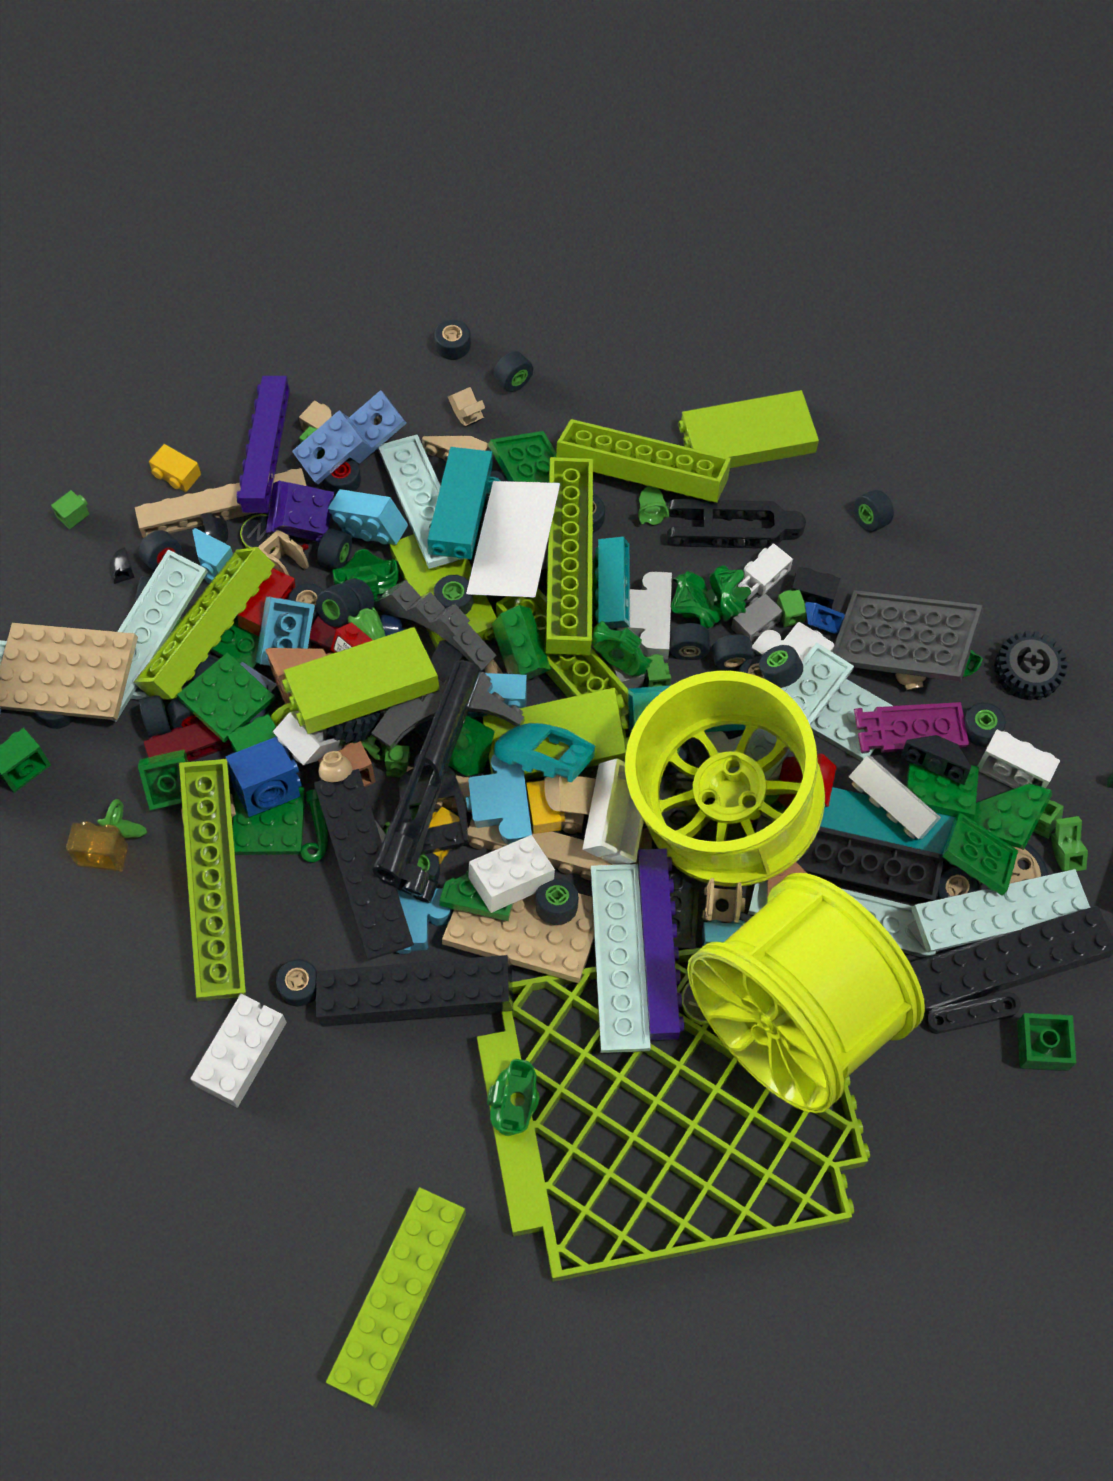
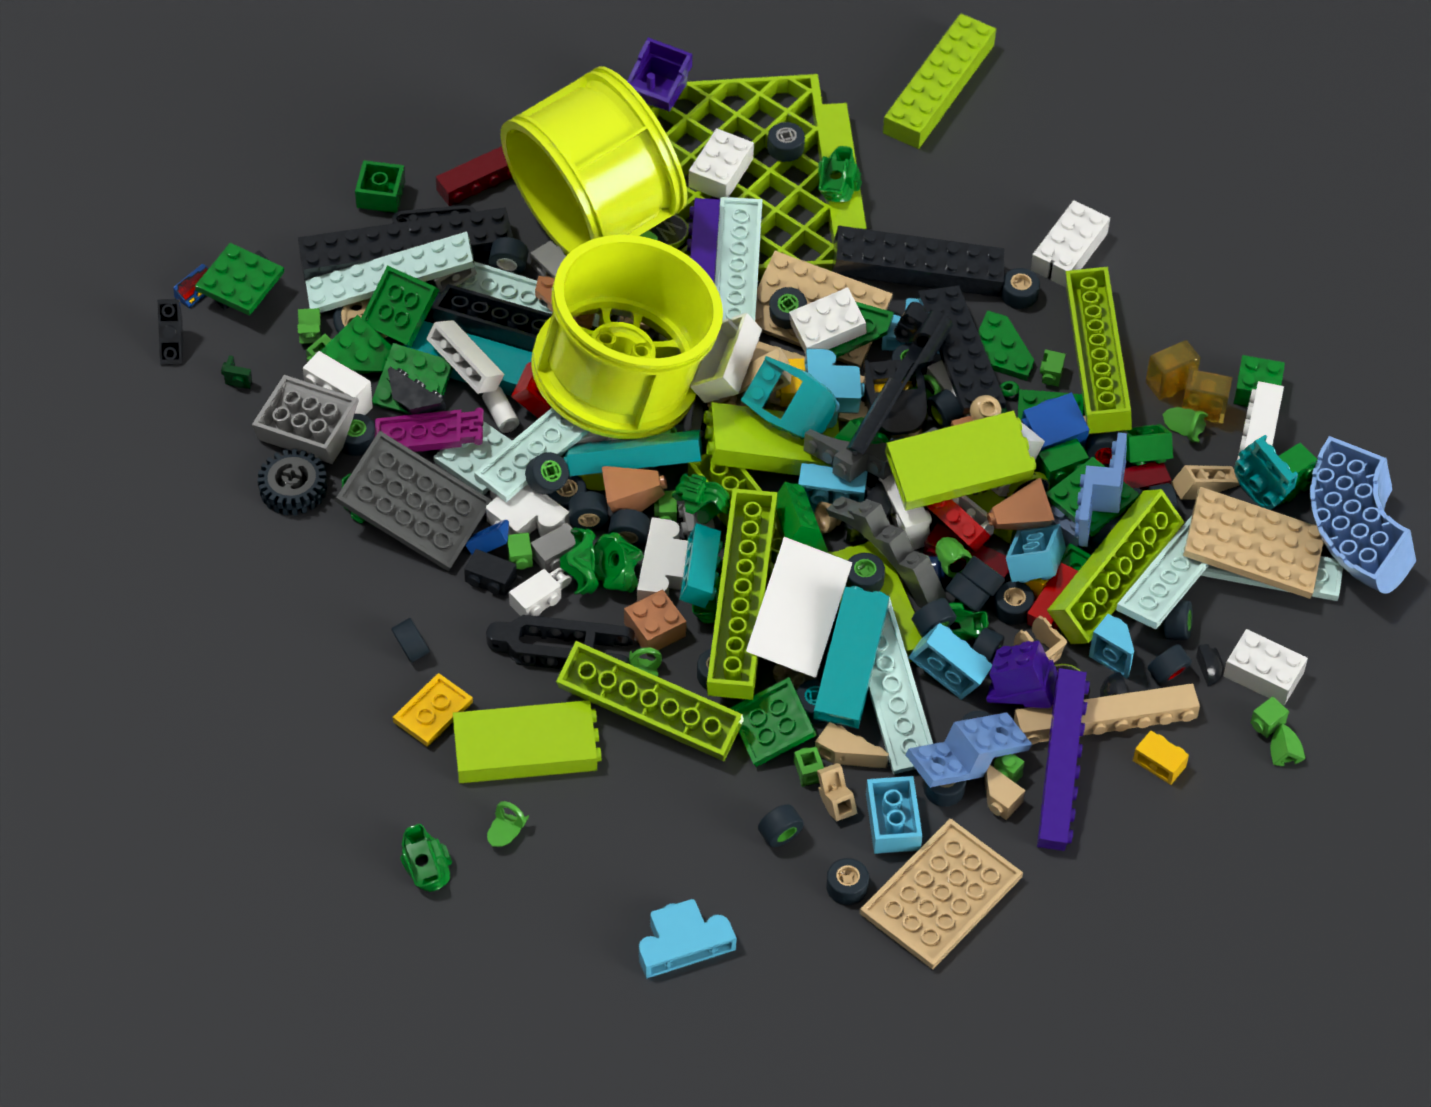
camera: 175 degrees left, 10 degrees down
(38, 880) = (1254, 370): none -> green brick
(40, 727) = (1264, 474): none -> teal slope
(42, 811) = (1262, 414): none -> white piece
(56, 486) = (1286, 746): none -> bright green brick
(68, 559) = (1265, 666): none -> white brick
(108, 755) = (1209, 477): none -> tan slope
(131, 876) = (1170, 369): none -> clear yellow brick
(214, 670) = (1101, 489): none -> medium blue bracket
(263, 878) = (1052, 367): none -> bright green brick
(320, 907) = (1005, 347): none -> green plate
(371, 339) = (941, 893): none -> tan plate
(381, 803) = (944, 408): none -> black wheel
(384, 551) = (932, 614): none -> black wheel
(415, 390) = (893, 814): none -> medium azure brick
(492, 428) = (807, 763): none -> bright green brick
(578, 1153) = (786, 141): none -> black wheel
(586, 283) = (683, 938): none -> medium azure brick
(652, 549) = (655, 621): none -> nougat brick
(655, 1097) = (721, 164): none -> white brick
(691, 662) = (632, 487): none -> nougat slope
(750, 359) = (505, 825): none -> bright green piece
(751, 1210) = (660, 73): none -> dark purple piece
(803, 326) = (418, 843): none -> green piece
(837, 455) = (432, 709): none -> yellow plate
(844, 766) = (501, 410): none -> white brick
(938, 1079) = (473, 177): none -> dark red brick
(1039, 715) = (306, 418): none -> light grey slope

